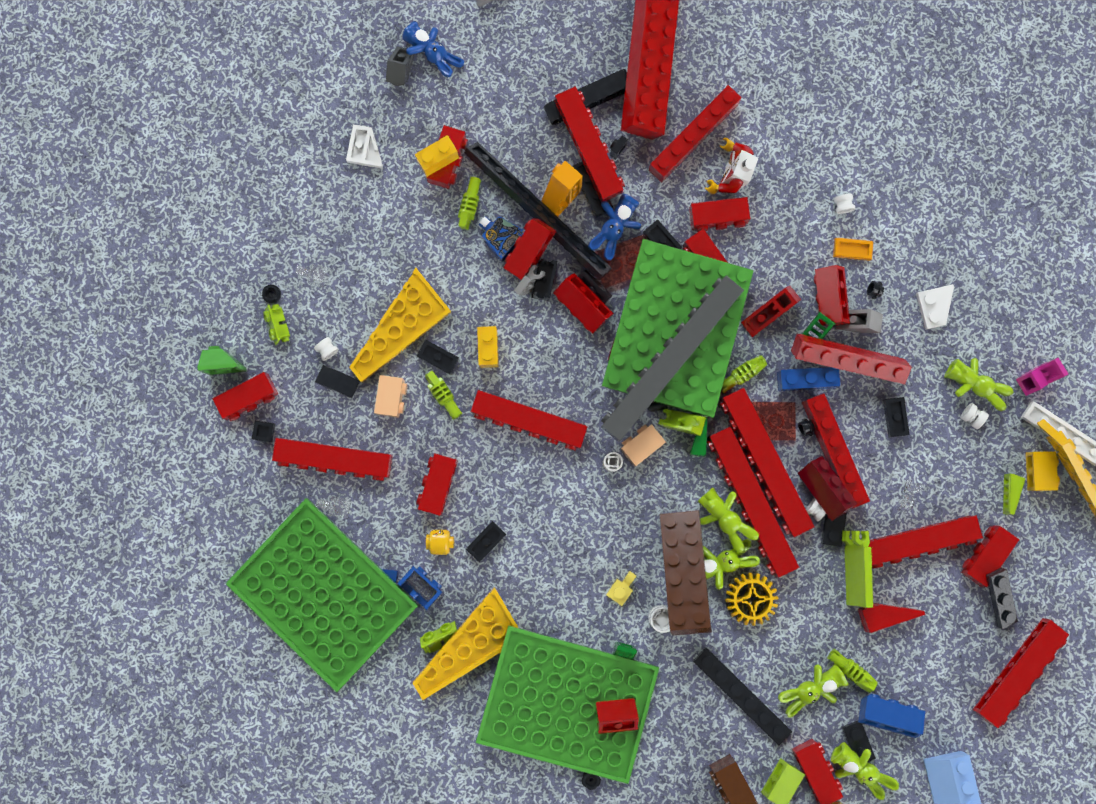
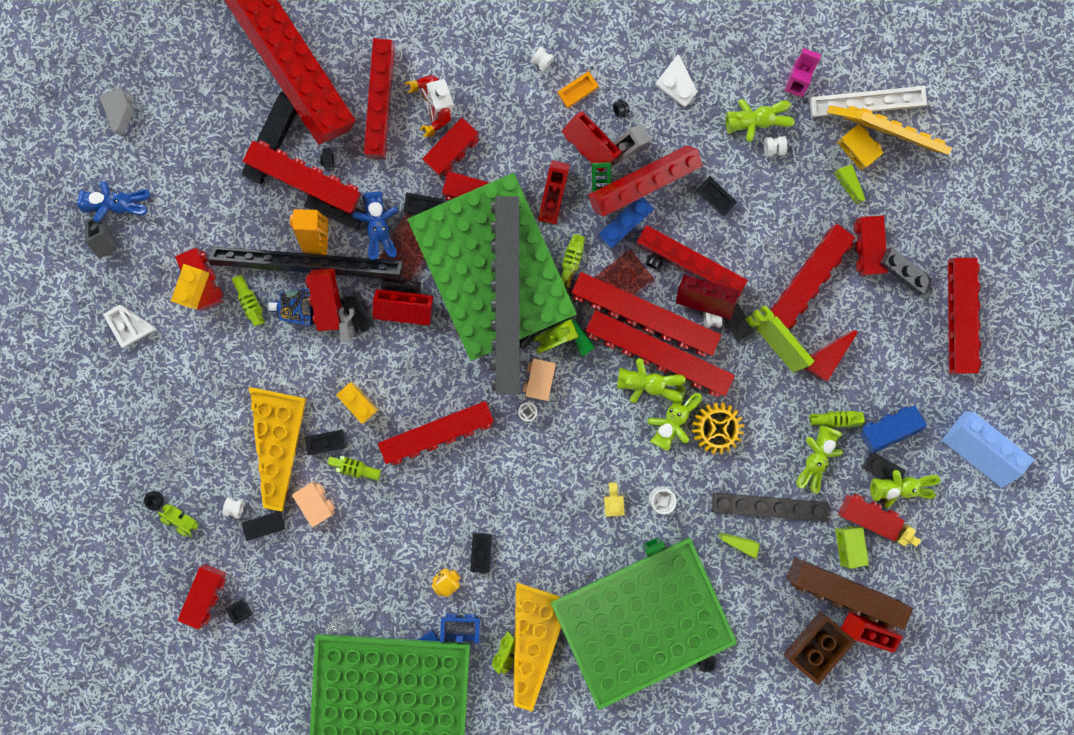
camera: 45 degrees left, 5 degrees up
(218, 361) = (157, 587): bright green slope -> none
(332, 458) = (310, 587): red brick -> none
(437, 484) = (407, 540): red brick -> none
(617, 715) = (687, 601): red panel -> none
(685, 573) = (651, 452): reddish brown brick -> none
(698, 711) = (745, 545): none -> lime slope

